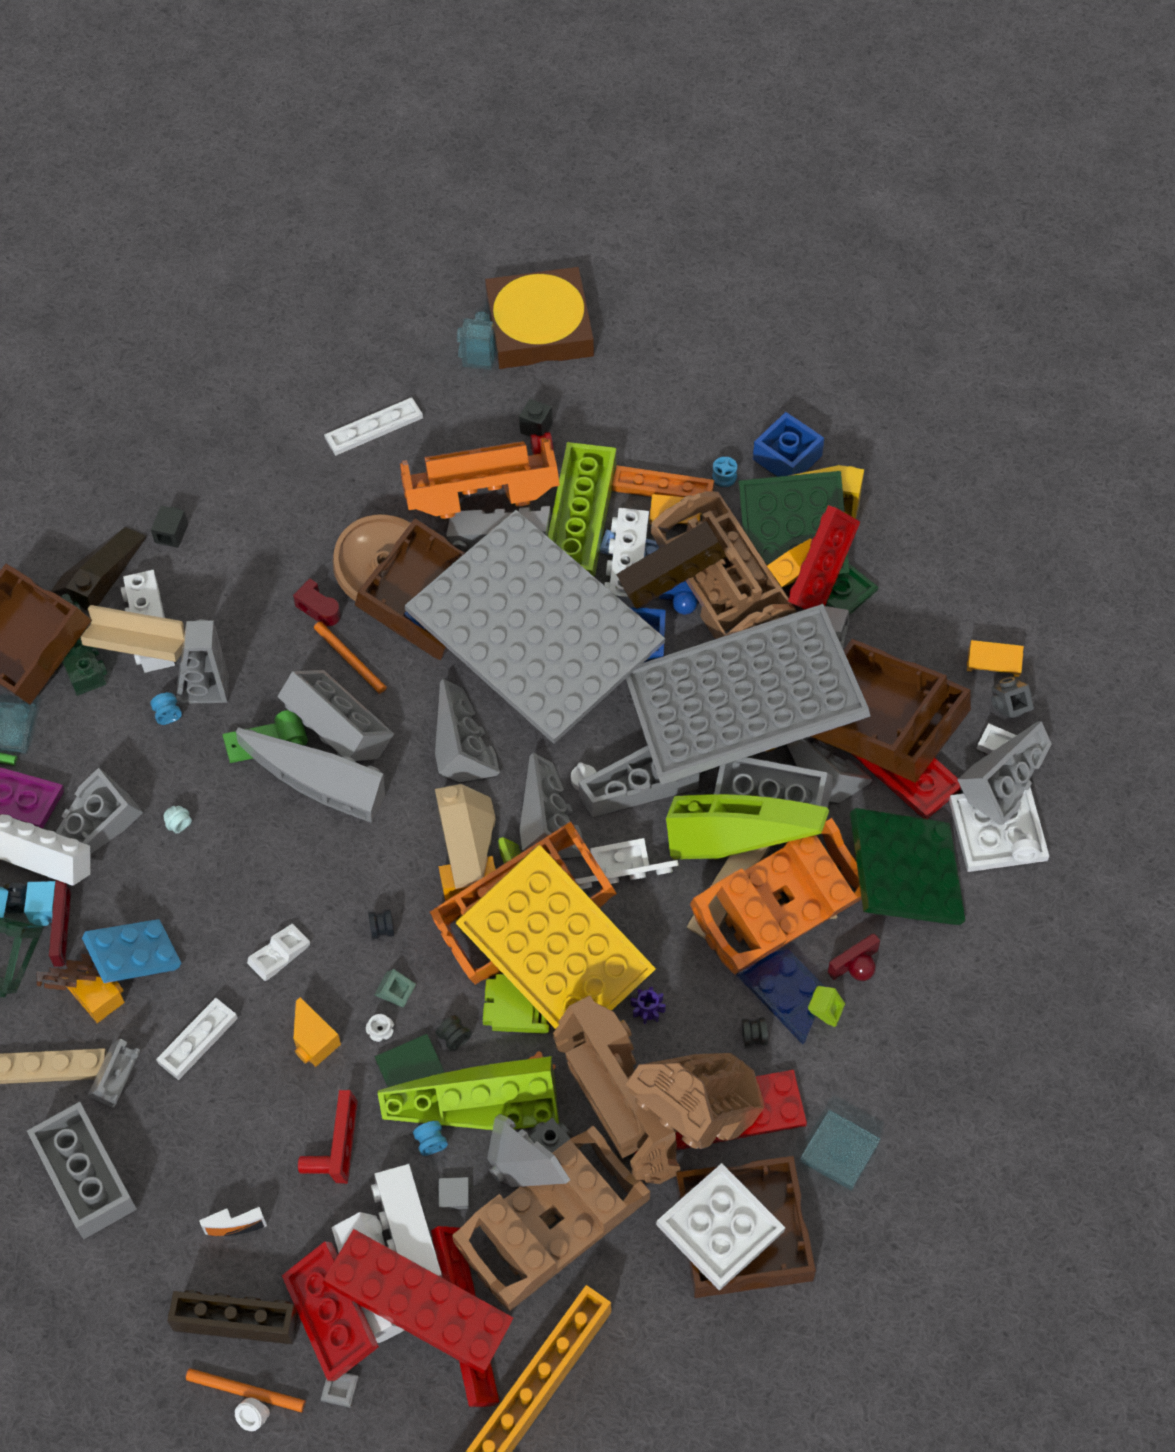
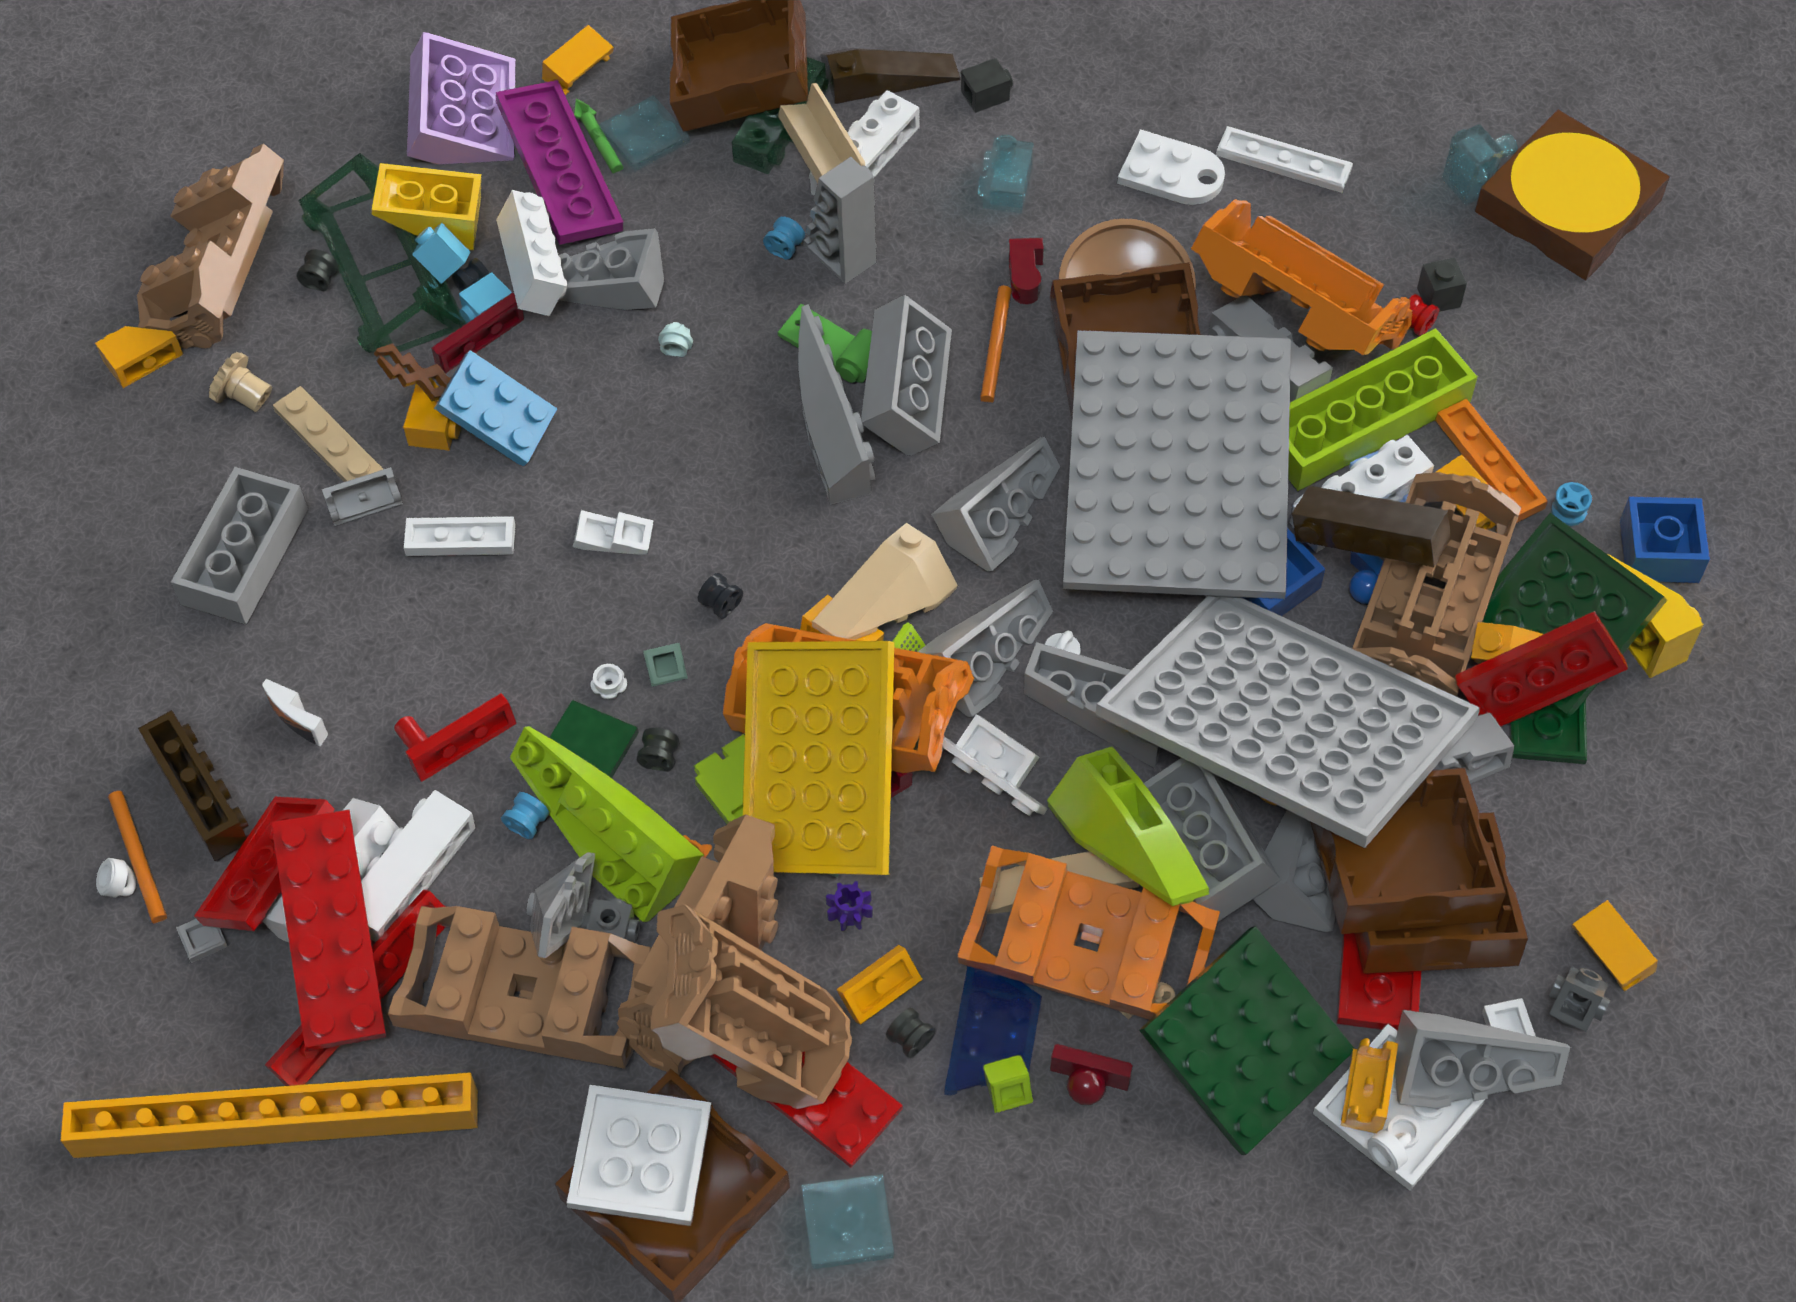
camera: 50 degrees right, 0 degrees up
(244, 563) = (1007, 174): none -> clear light blue brick
(312, 1035) = (546, 627): light orange slope -> none
(323, 483) = (1171, 169): none -> white plate
(453, 1193) = (487, 883): light grey tile -> none
(710, 1025) = (879, 984): none -> light orange plate
(983, 829) = (1369, 1086): none -> light orange hinge

